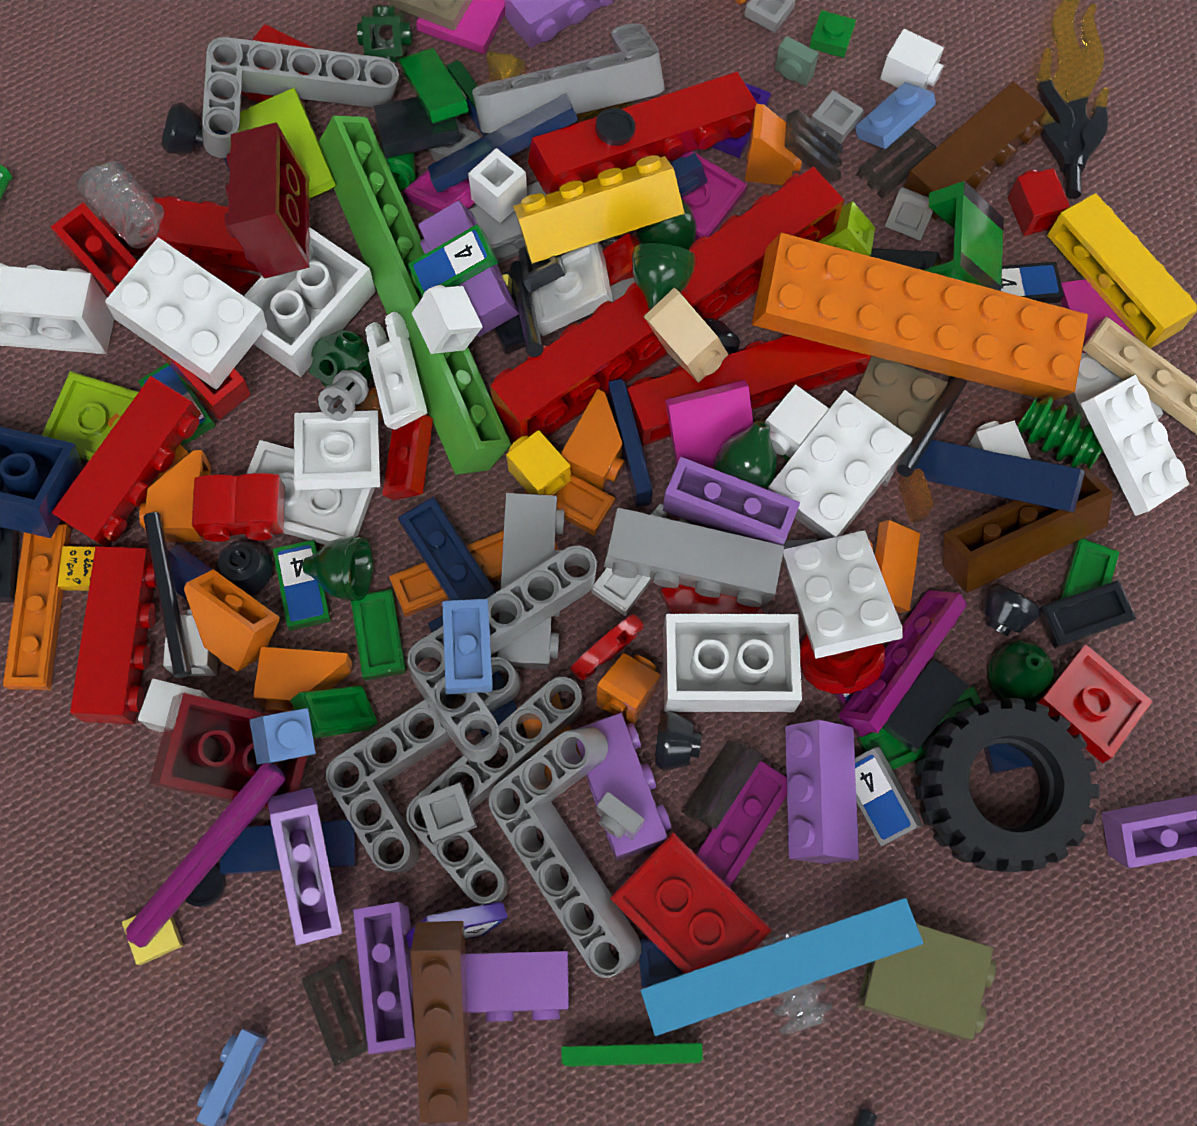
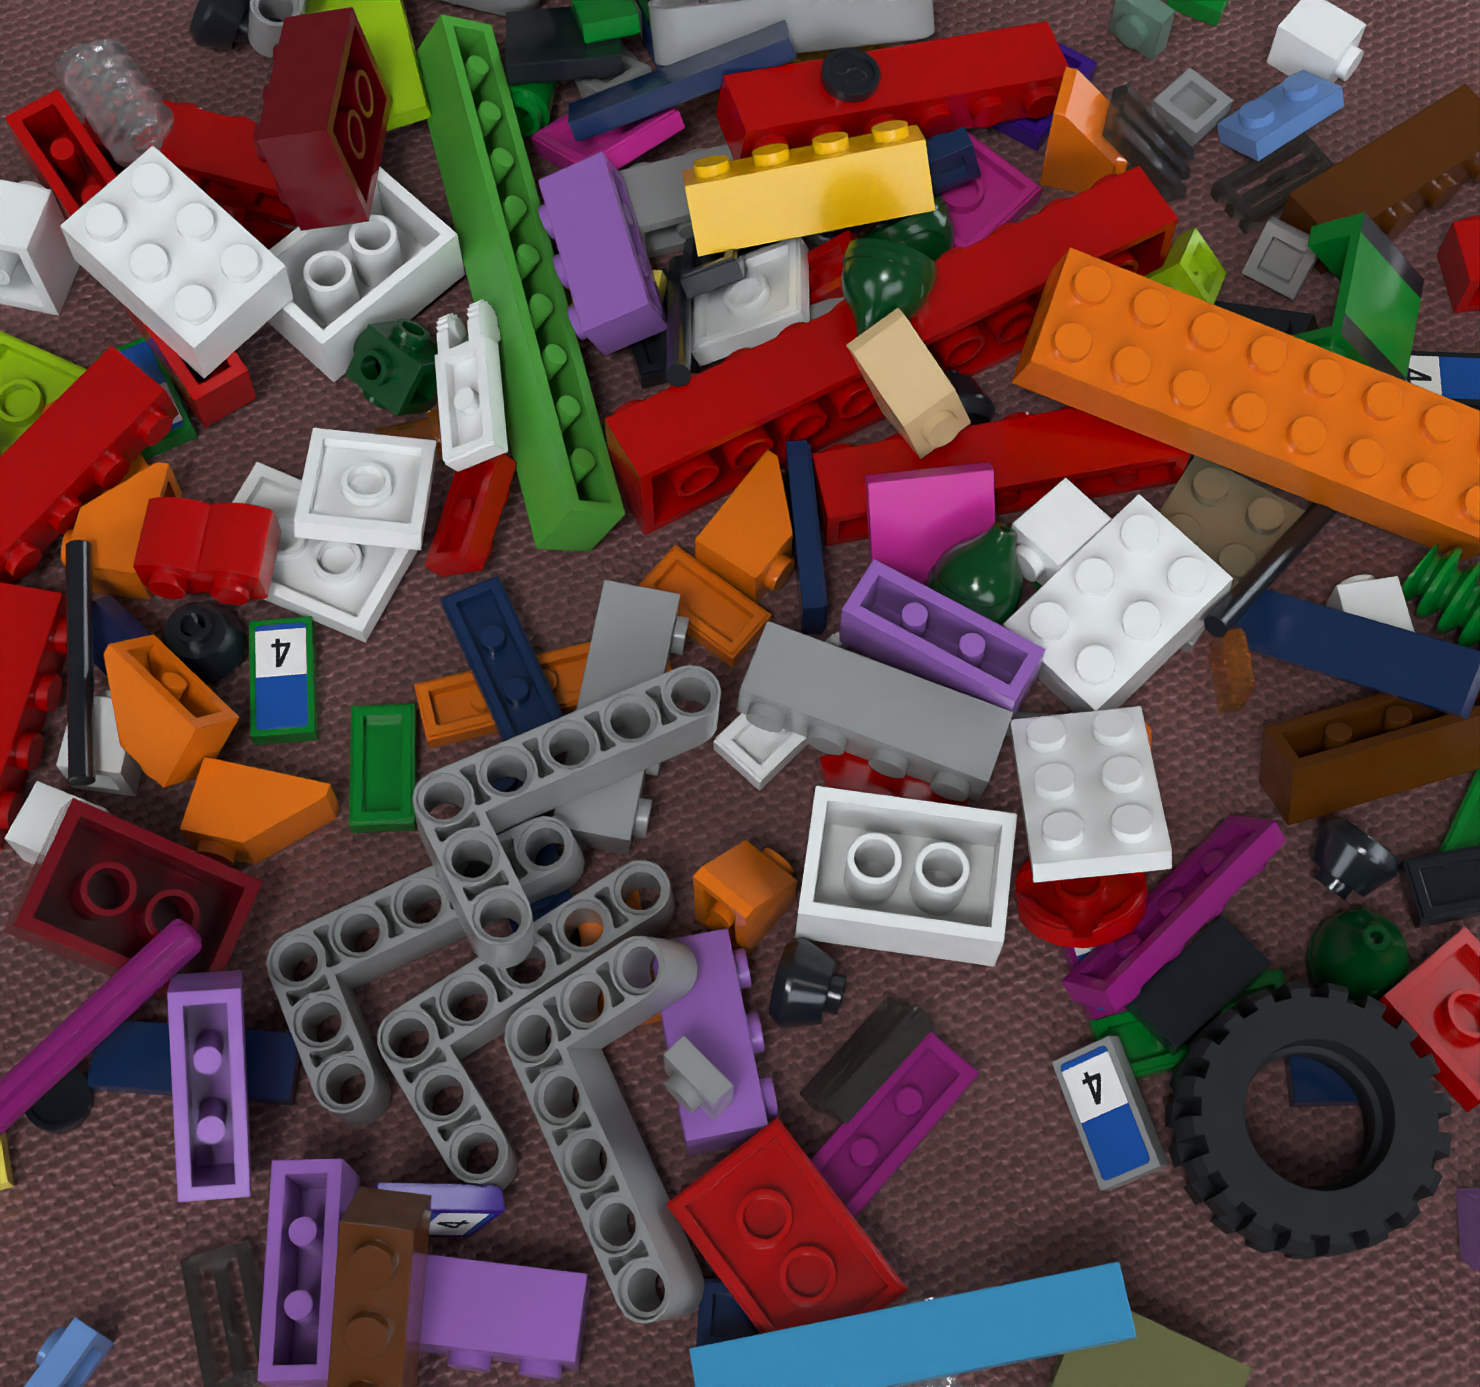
camera: 10 degrees right, 5 degrees down
(282, 736) = (209, 884): medium blue brick -> none
(336, 710) = (296, 867): green tile -> none
(338, 390) = (378, 403): light grey bush -> none
(343, 568) = (347, 660): dark green helmet -> none
(446, 319) = (556, 318): white brick -> none
(447, 813) = (437, 1036): light grey plate -> none
(454, 260) = (579, 239): tile -> none
(467, 646) = (503, 786): medium blue plate -> none
(497, 185) = (663, 137): white brick -> none
(538, 465) = (661, 548): yellow brick -> none
(607, 647) = (721, 827): red tile -> none
(821, 792) = (1017, 1093): medium lavender brick -> none
(897, 560) = (1187, 766): orange tile -> none

